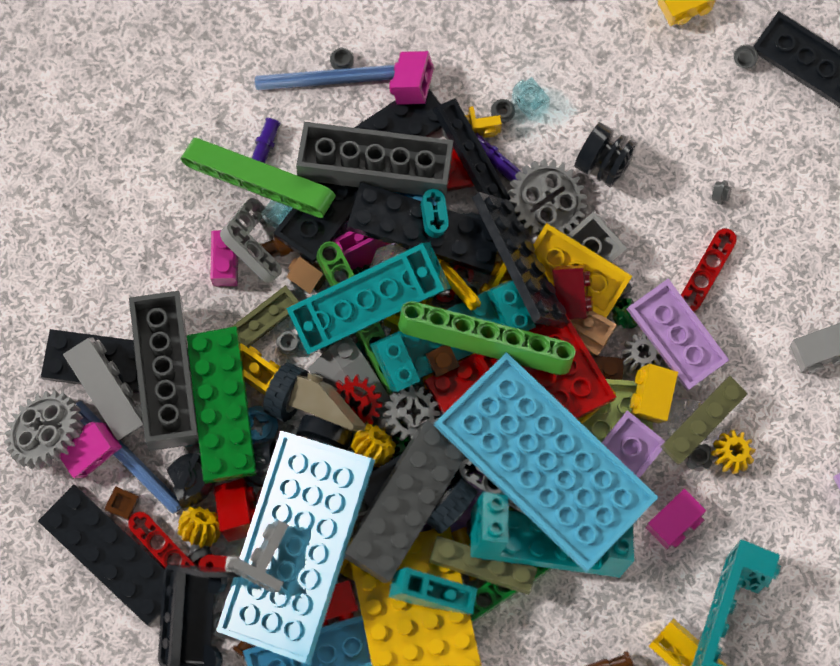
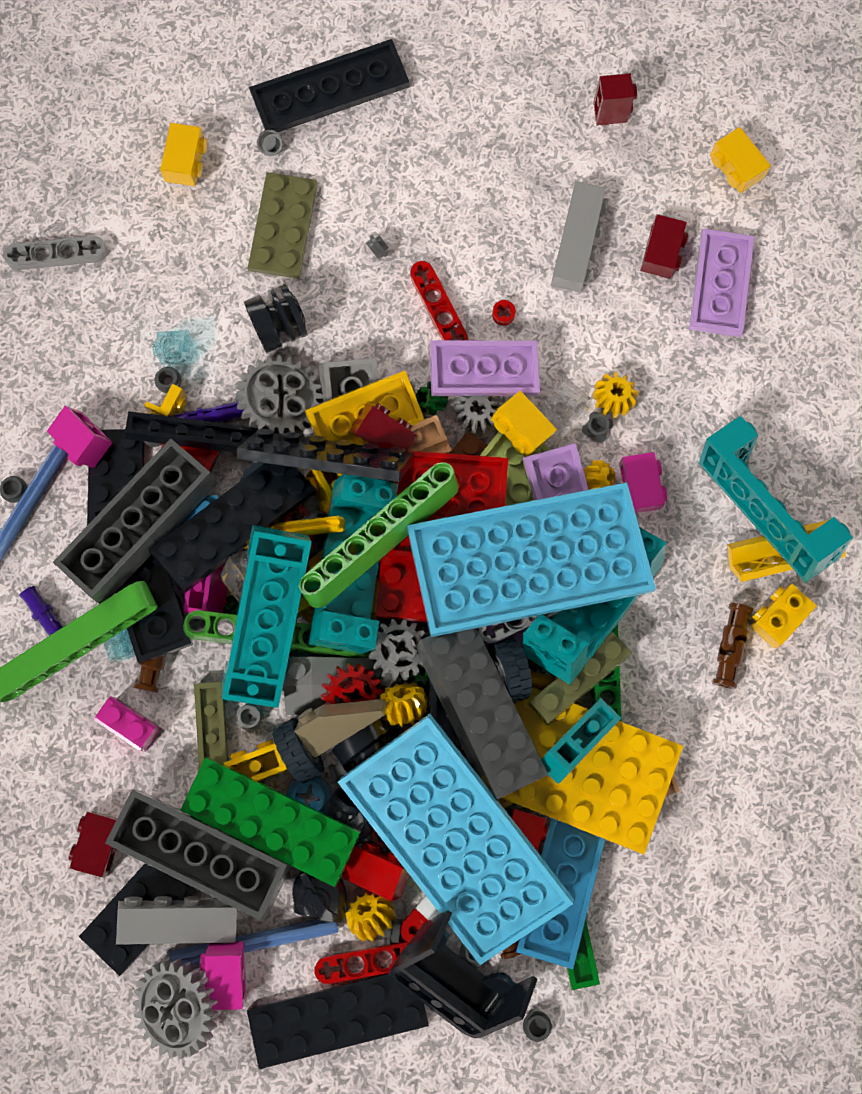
camera: 60 degrees left, 5 degrees up
(115, 295) = (91, 852): none -> dark red brick
(121, 503) = (296, 975): reddish brown plate -> none
(238, 239) = (113, 697): light grey beam -> none
(261, 559) = (450, 880): light grey bracket -> none
(306, 275) = (197, 658): medium nougat brick -> none
(440, 213) = (230, 497): teal beam -> none
(441, 360) = (369, 589): reddish brown plate -> none
(657, 480) = (599, 475): none -> yellow gear
(687, 111) = (282, 225): none -> olive plate
(704, 420) = (575, 399): olive plate -> none
(745, 320) = (503, 305): none -> red bush

